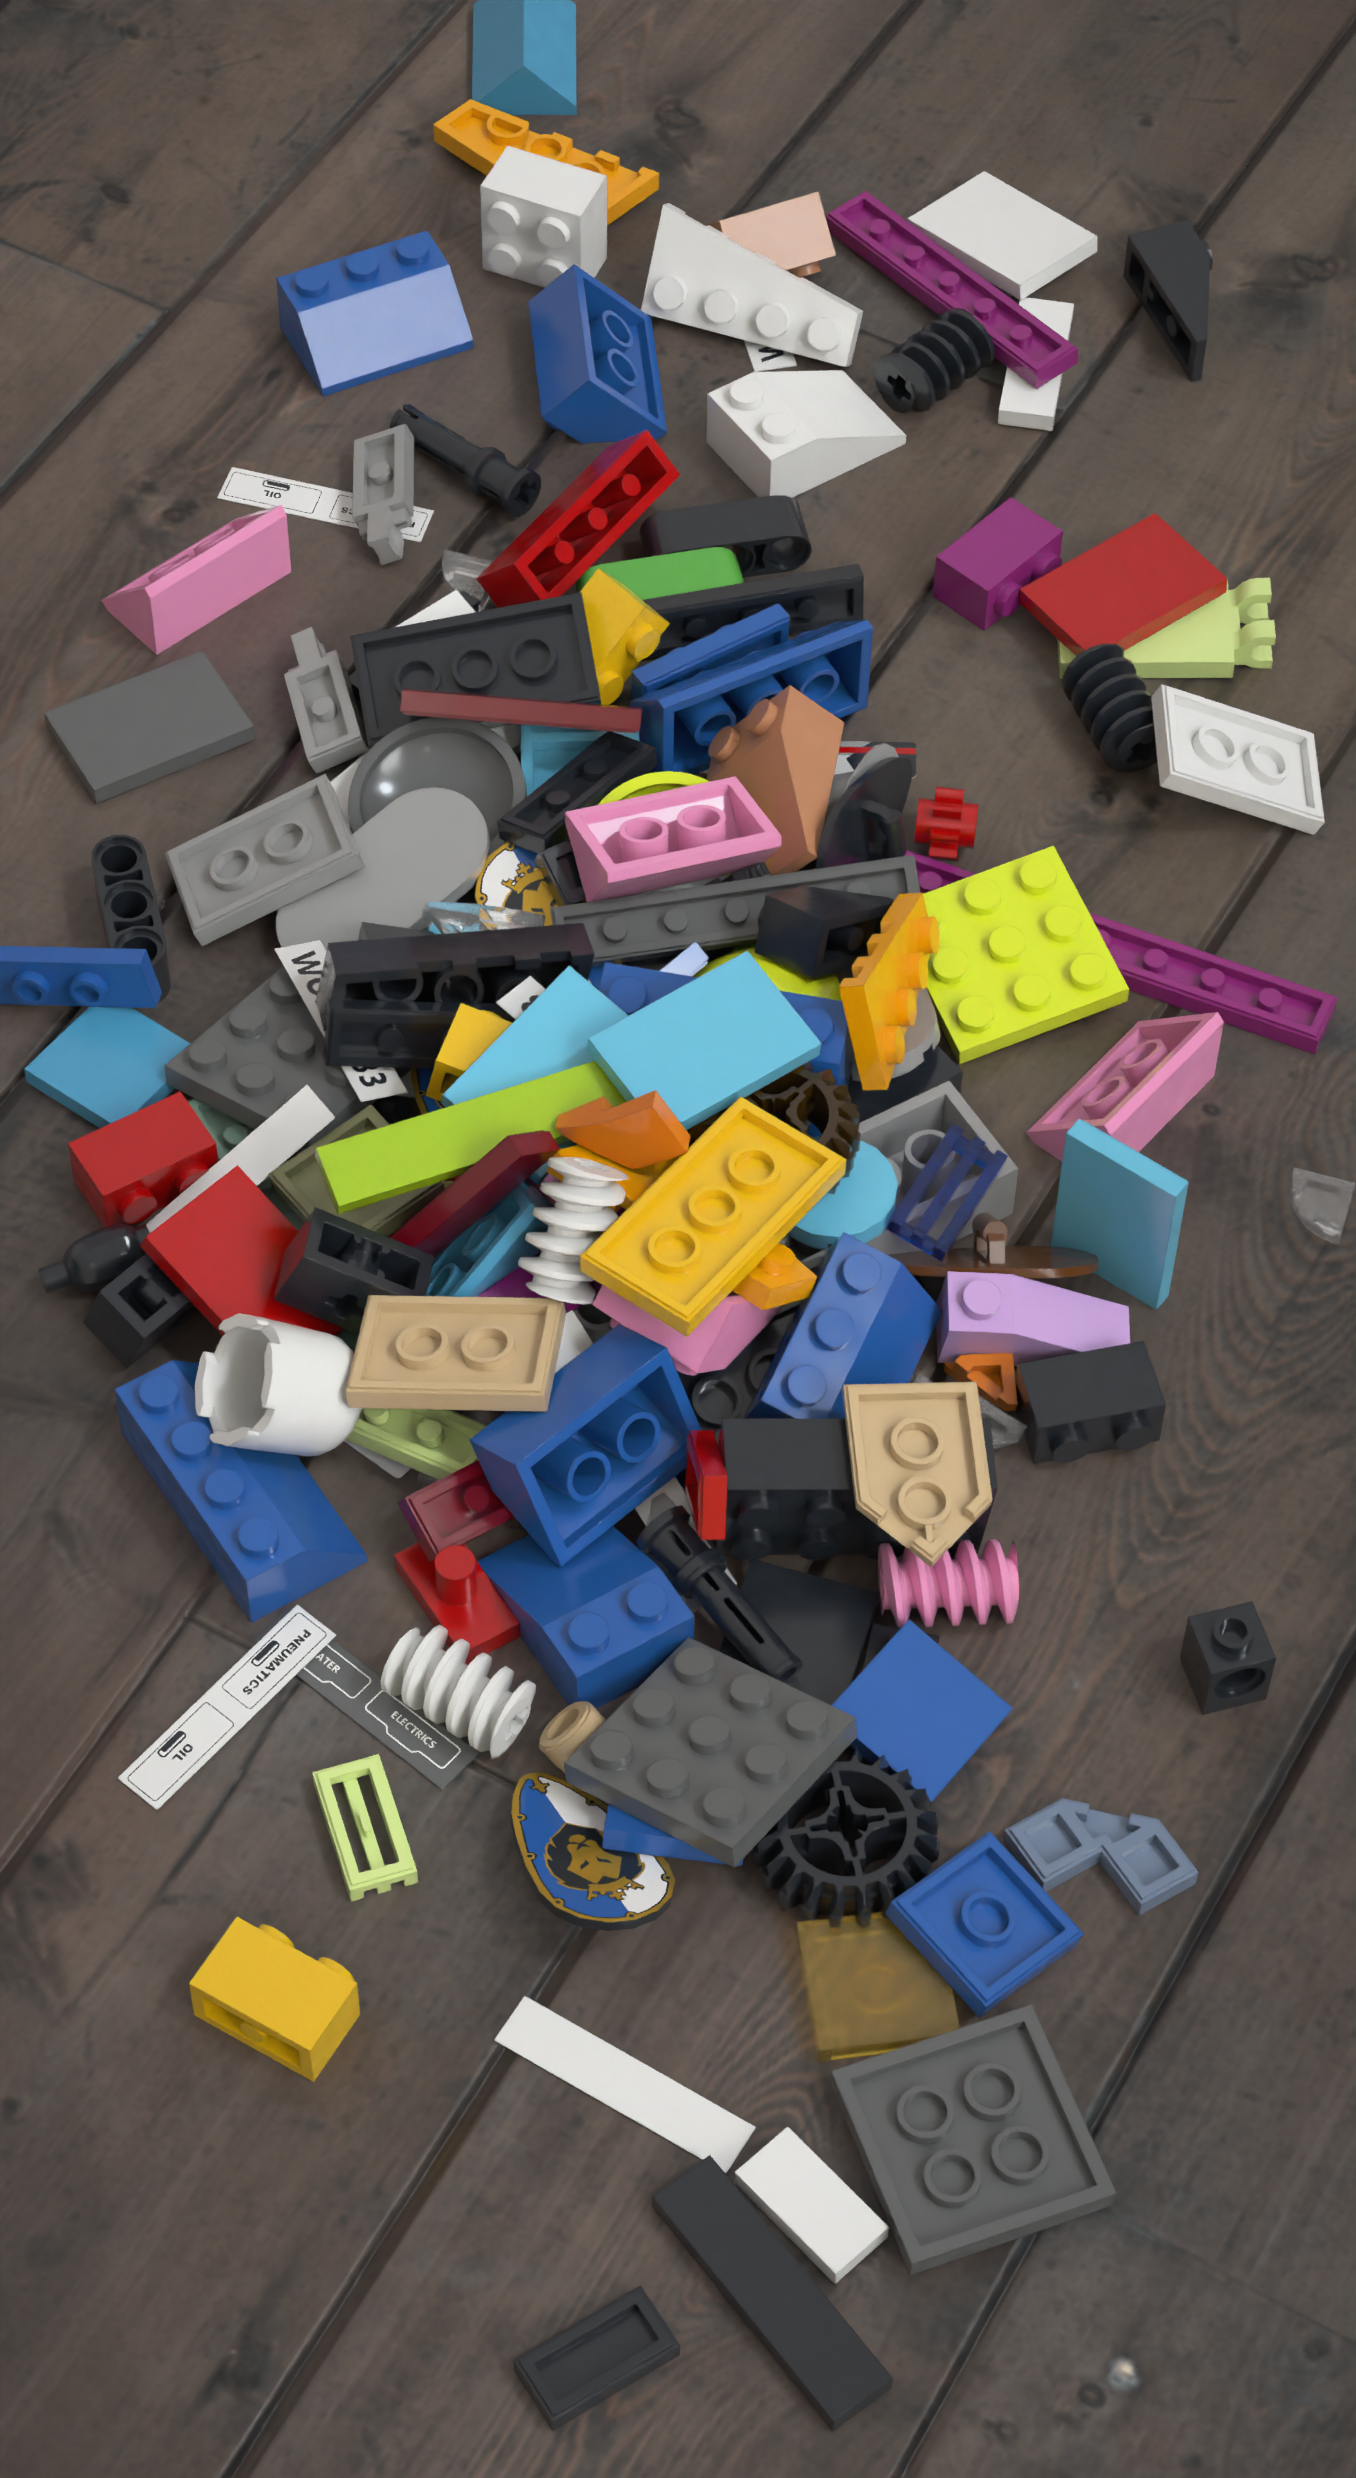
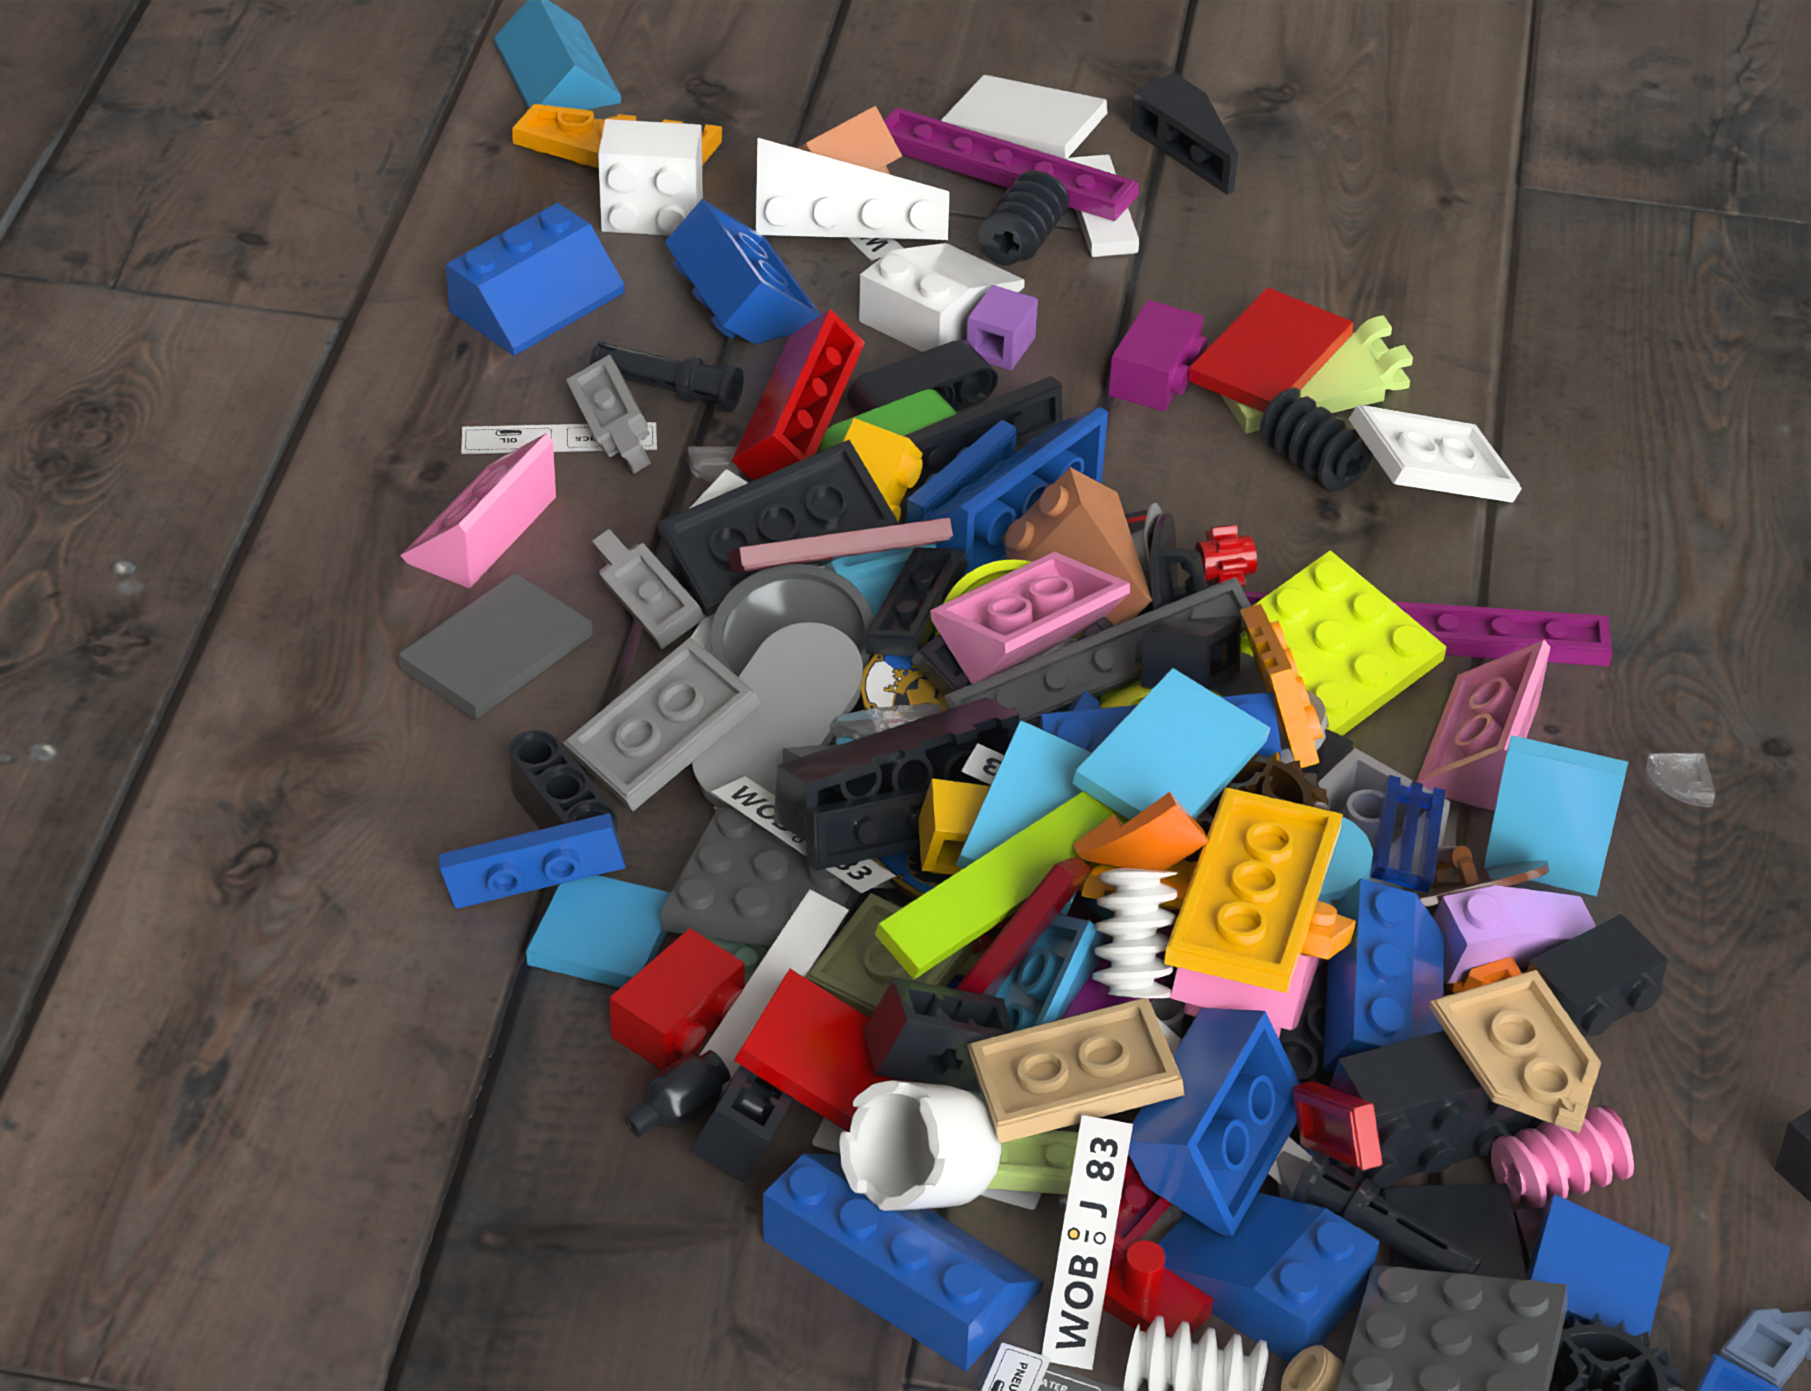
camera: 20 degrees left, 10 degrees down
(403, 1530) = (1086, 1242): none -> white sticker
(845, 489) = (1002, 326): none -> medium lavender brick

